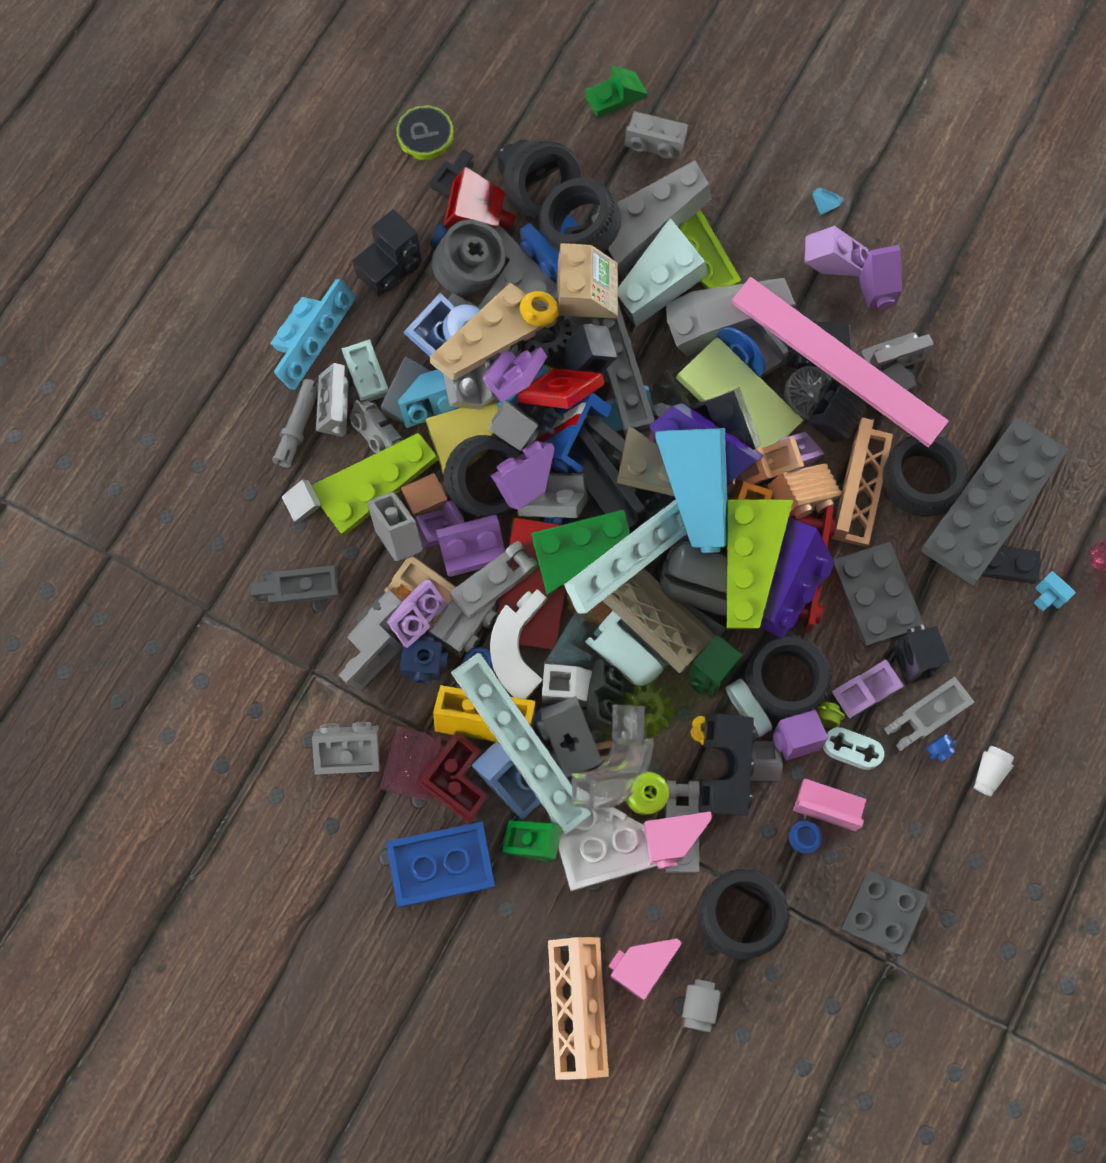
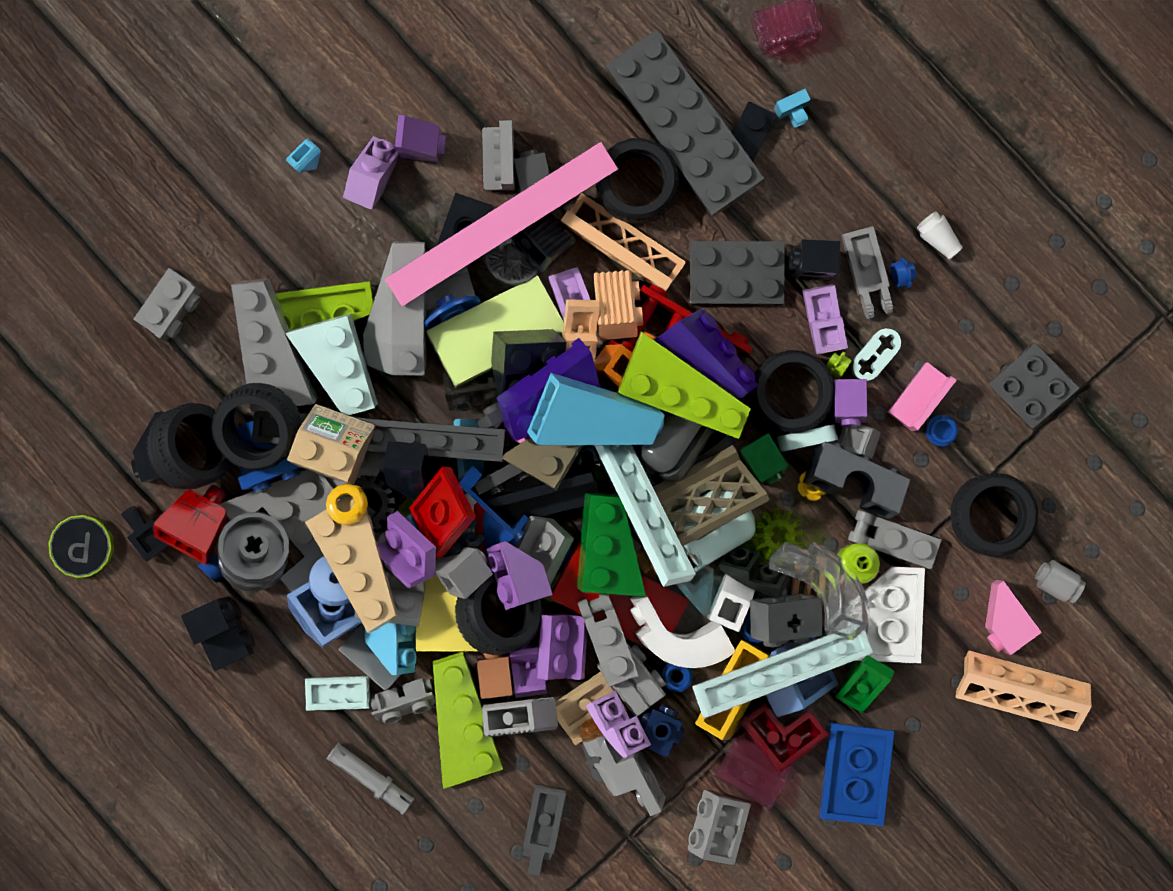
camera: 65 degrees left, 15 degrees up
(301, 501) = (456, 798): tile -> none
(308, 331) = (272, 738): medium azure bracket -> none
(332, 401) = (362, 737): light grey bracket -> none
(617, 92) = (102, 328): green slope -> none
(673, 837) = (909, 554): bright pink slope -> none

